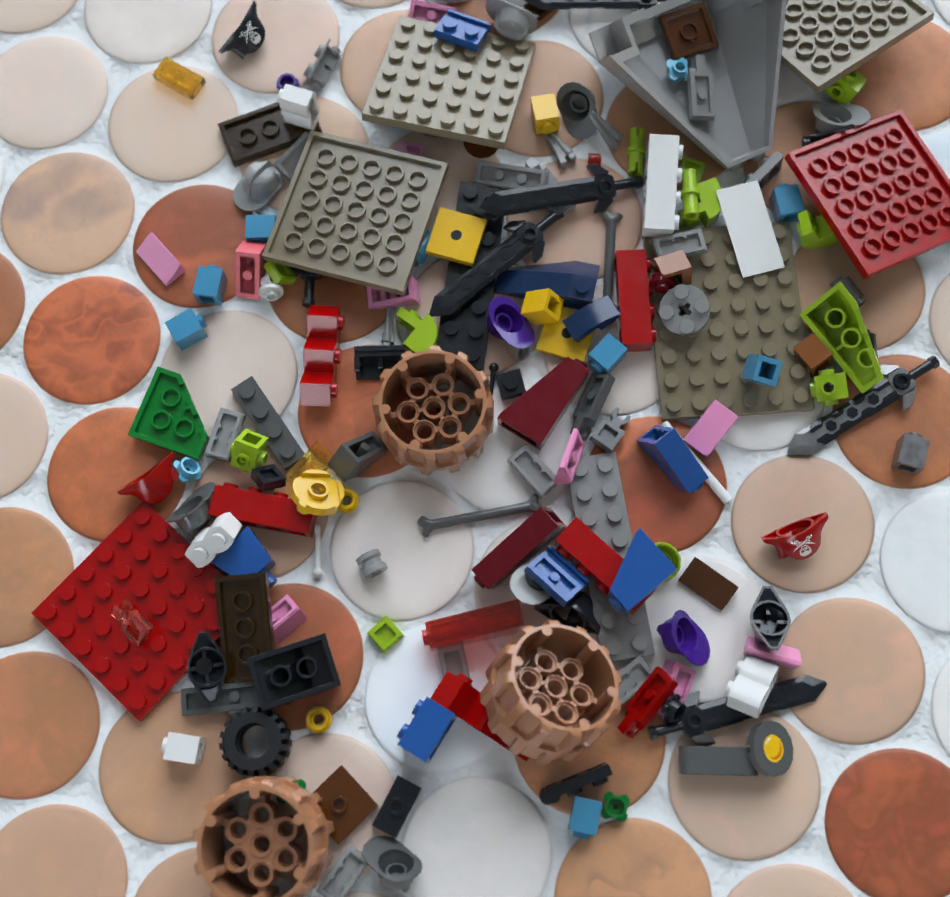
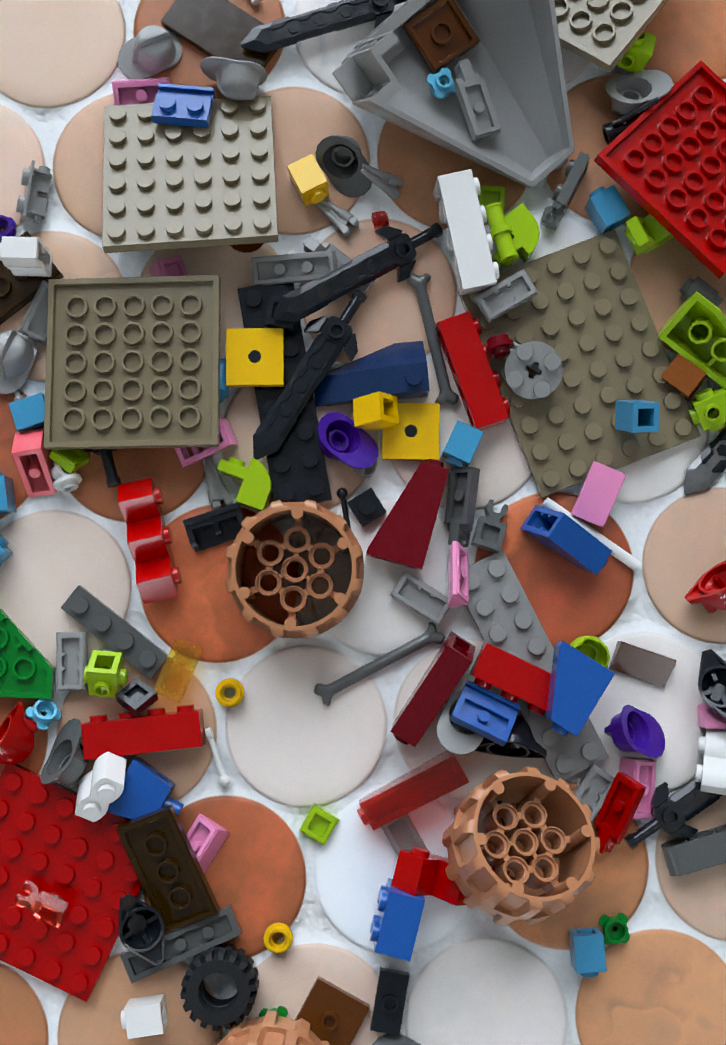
camera: 25 degrees left, 10 degrees up
(293, 672) = (237, 903): black slope -> none
(311, 503) = (197, 716): yellow plate -> none
(357, 455) = (225, 641): dark grey slope -> none
(371, 563) = (280, 755): light grey wheel -> none
(573, 784) = (566, 921): black hinge -> none
(590, 317) = (433, 408): dark blue slope -> none
(636, 151) = (423, 195): lime pin -> none
(673, 709) = (647, 814): black plate -> none
(674, 264) = (508, 323): panel -> none
(750, 228) = (576, 252): white sticker -> none

